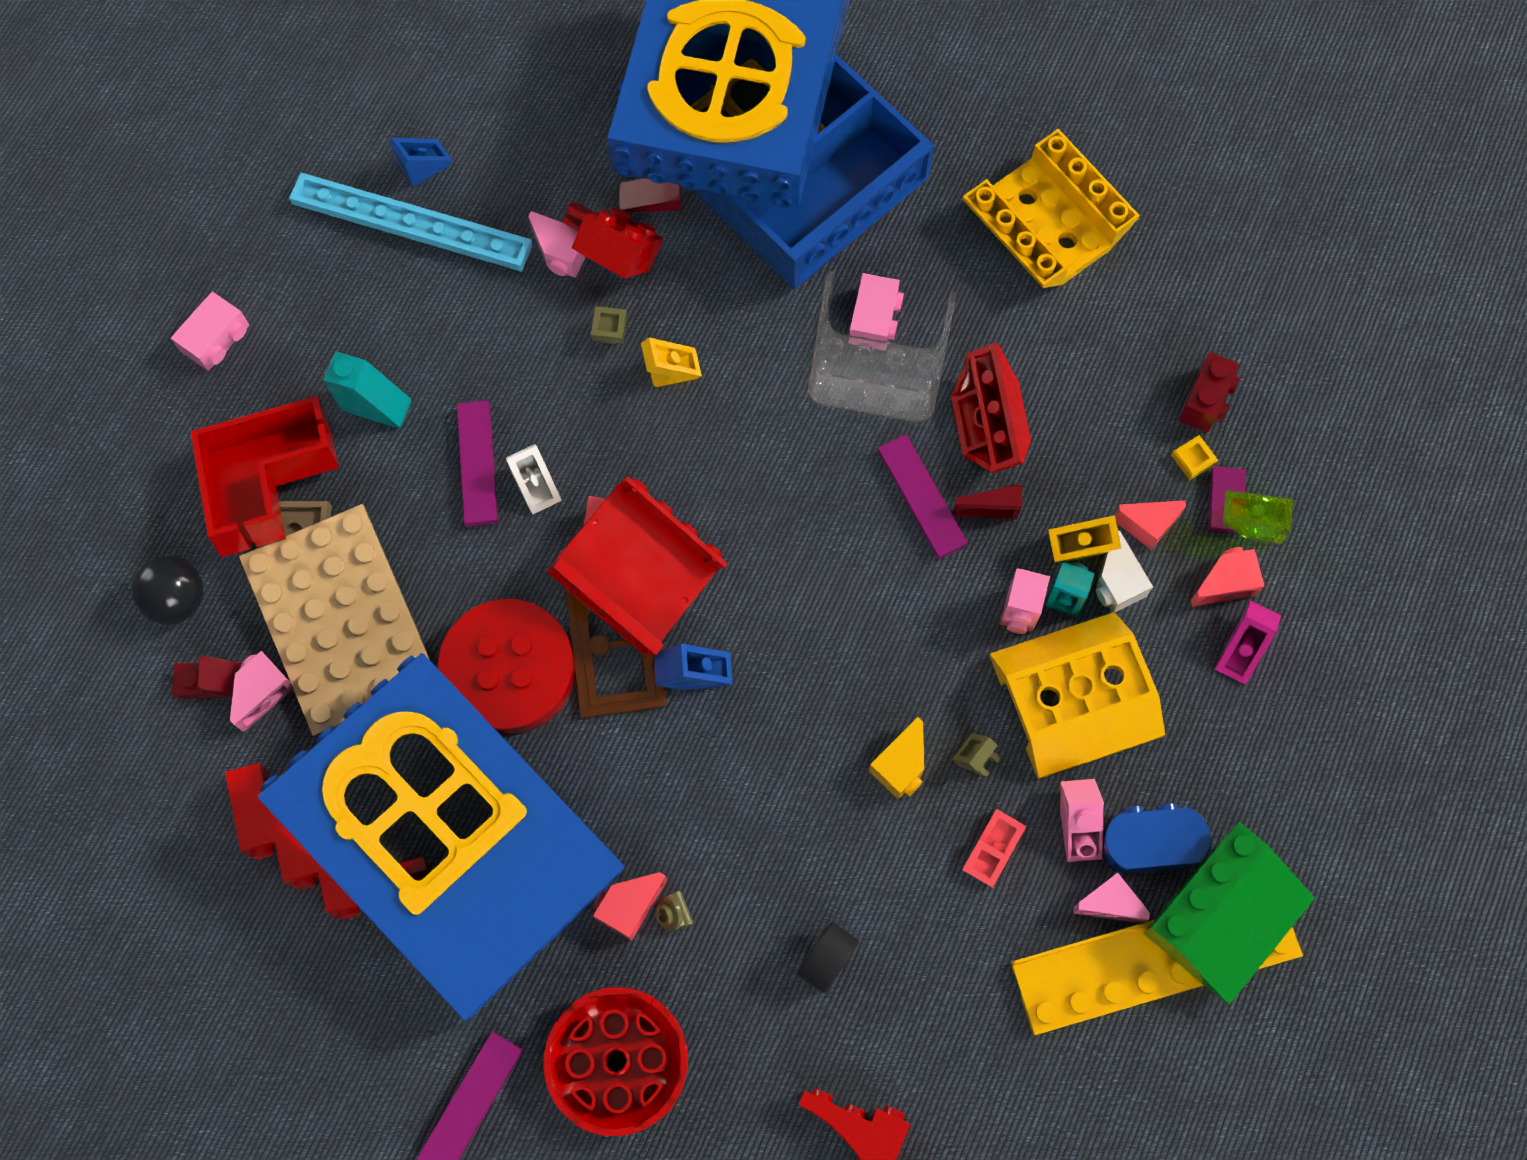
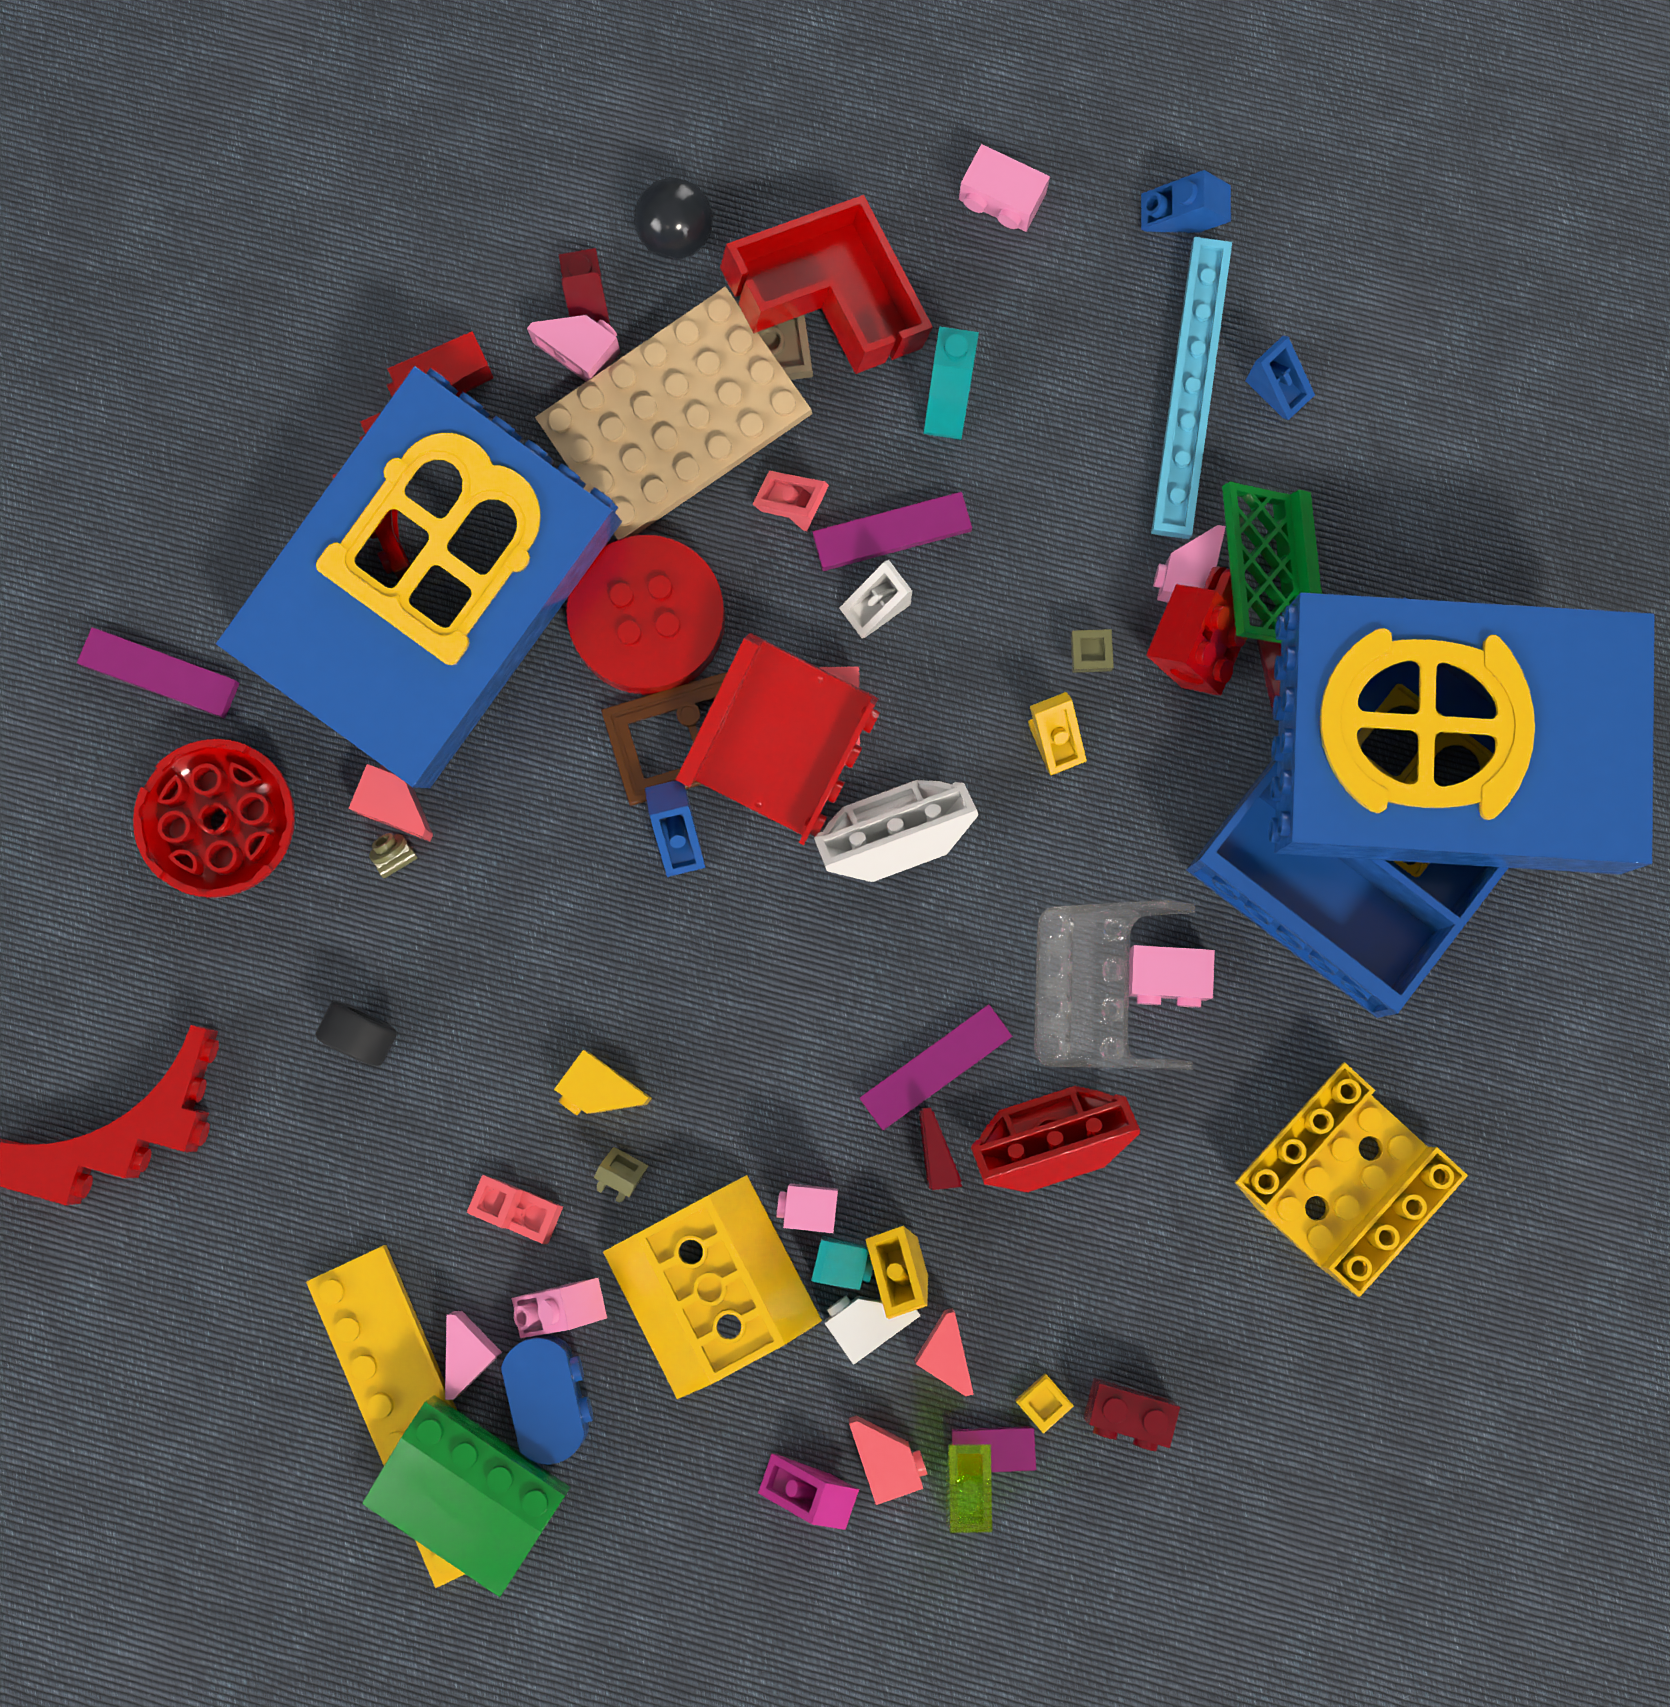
camera: 80 degrees right, 10 degrees up
(261, 200) = (1187, 205): none -> blue slope
(433, 530) = (791, 497): none -> coral slope
(565, 168) = (1296, 550): none -> green fence
(725, 490) = (896, 829): none -> white wedge

